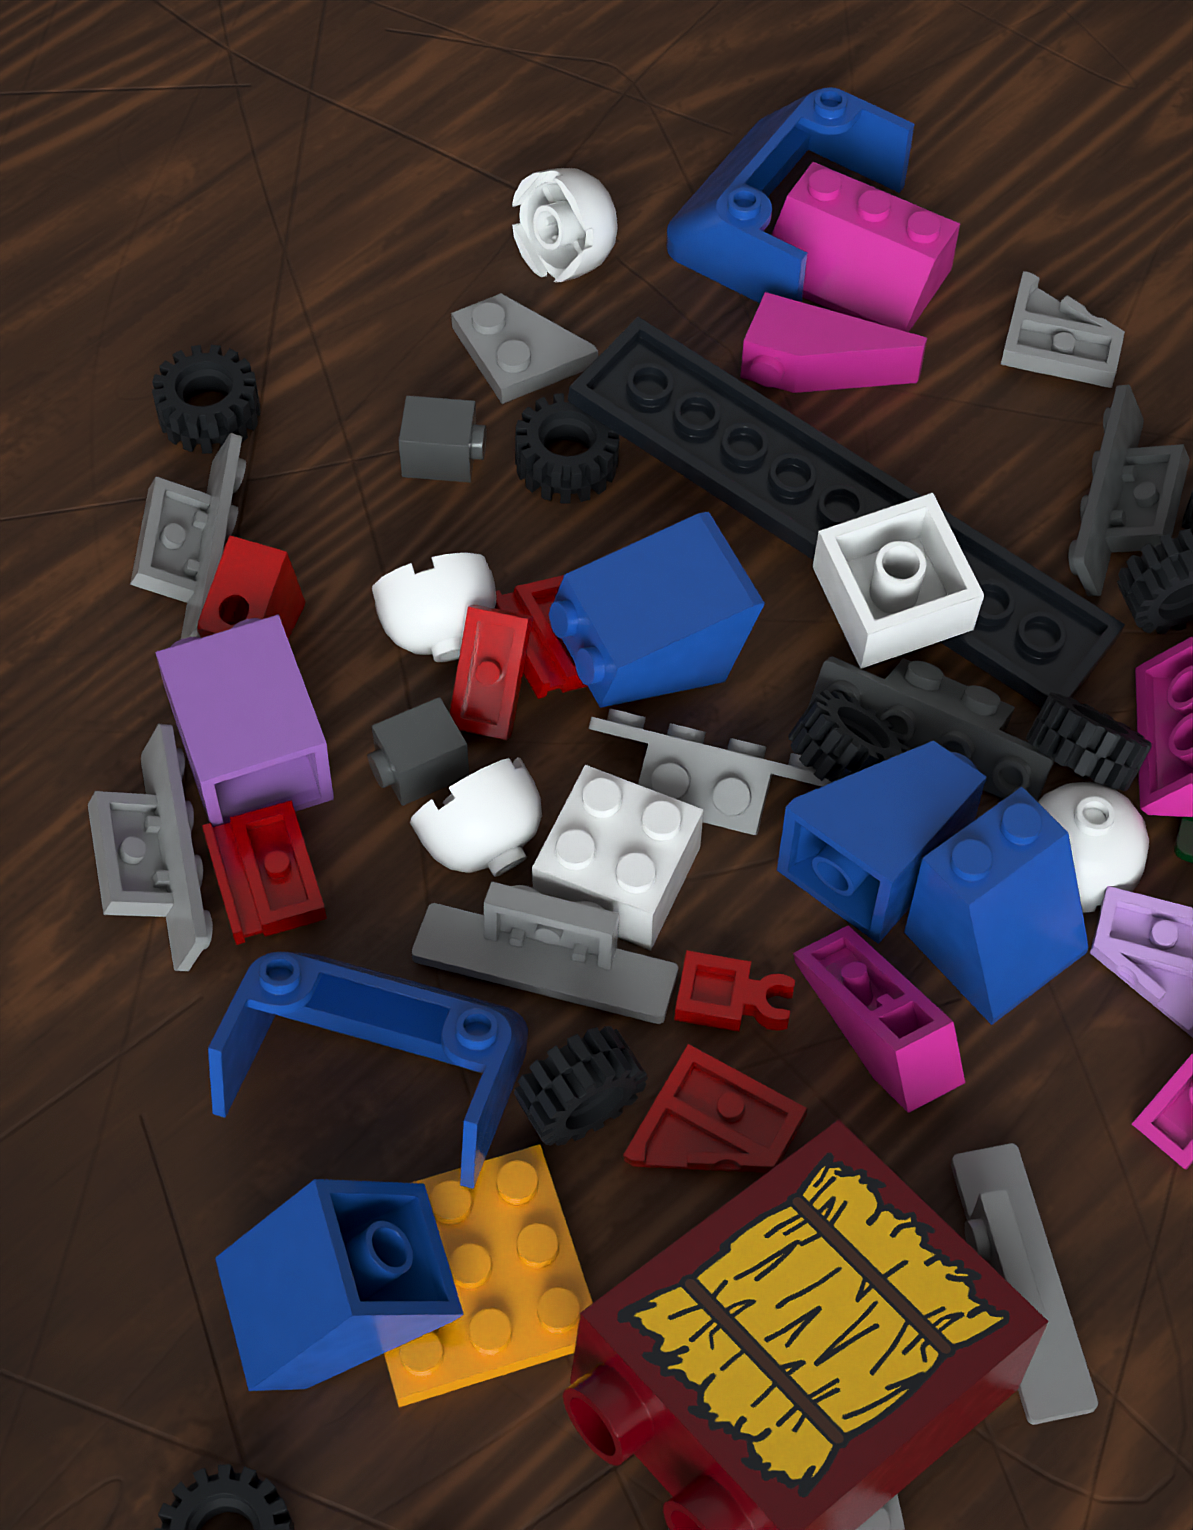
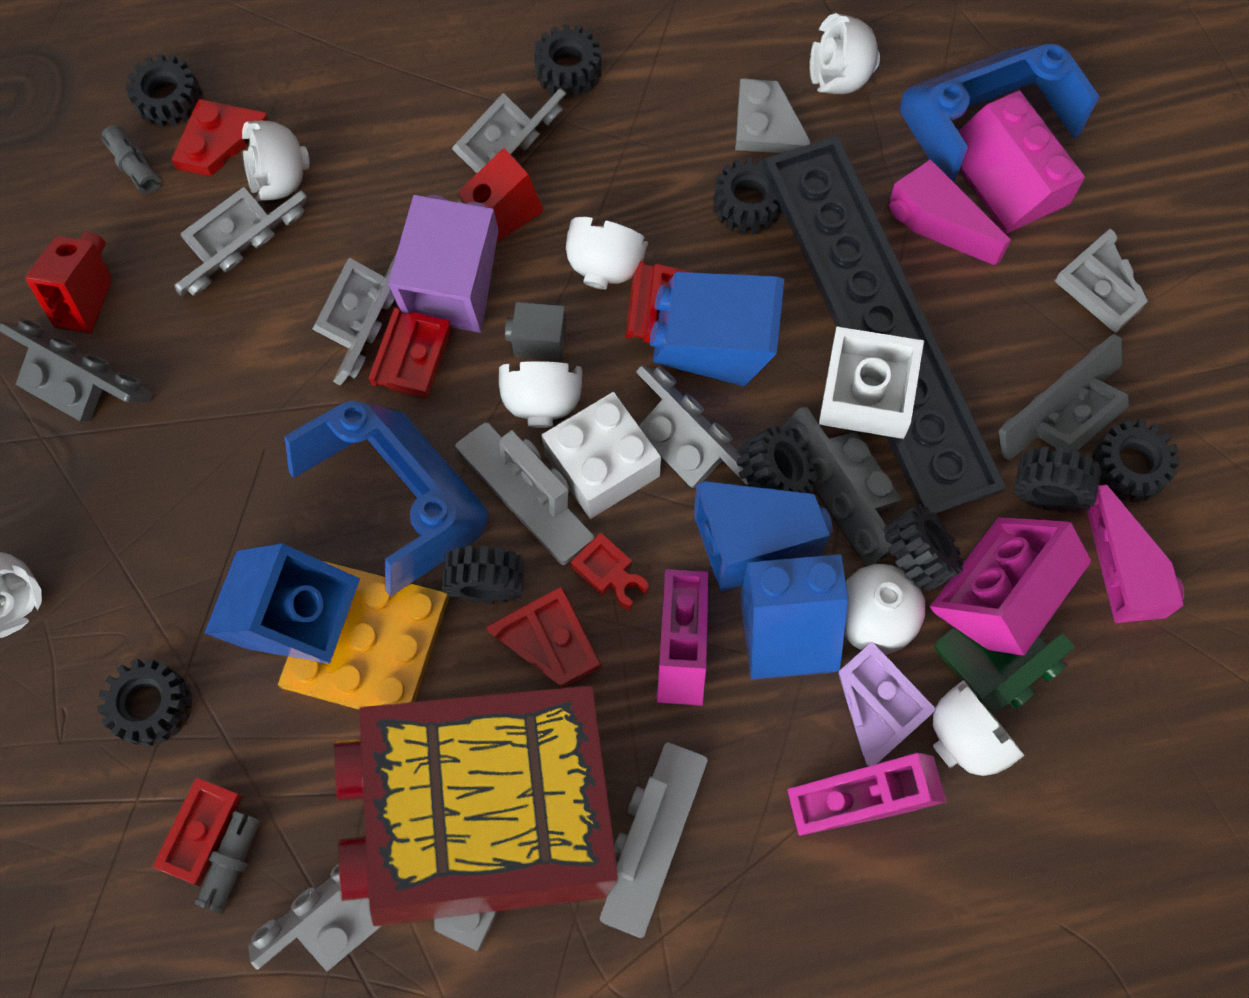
camera: 35 degrees right, 10 degrees up
(440, 439) = (678, 152): dark grey brick -> none
(490, 671) = (605, 306): red plate -> none

